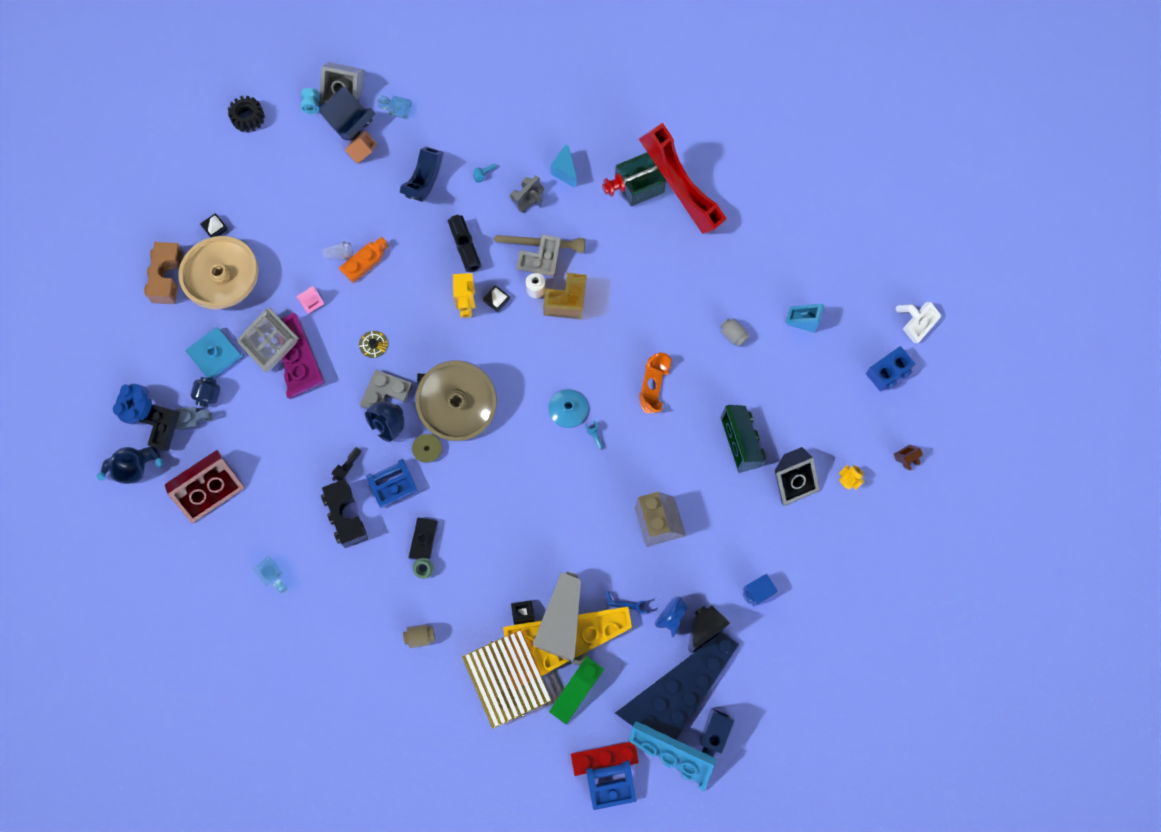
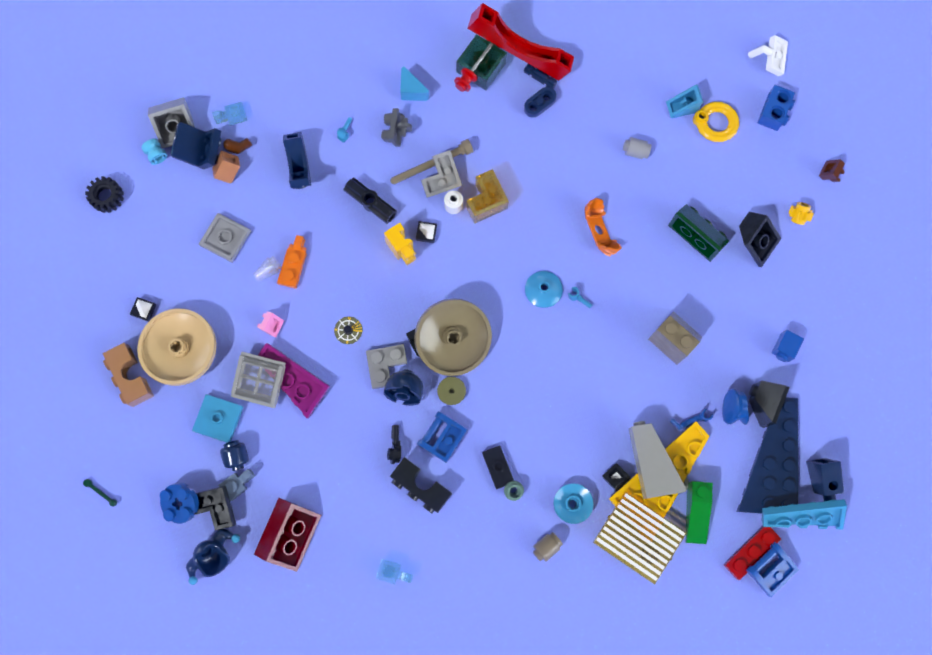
camera: 30 degrees left, 5 degrees up
(73, 344) = (88, 483): none -> hinge
(321, 205) = (225, 237): none -> light grey tile
(381, 135) = (236, 147): none -> reddish brown arm
(460, 603) = (583, 501): none -> dark azure dish
(671, 241) = (539, 103): none -> dark blue plate
(687, 221) = (540, 76): none -> dark blue axle
(815, 361) = (706, 131): none -> yellow piece

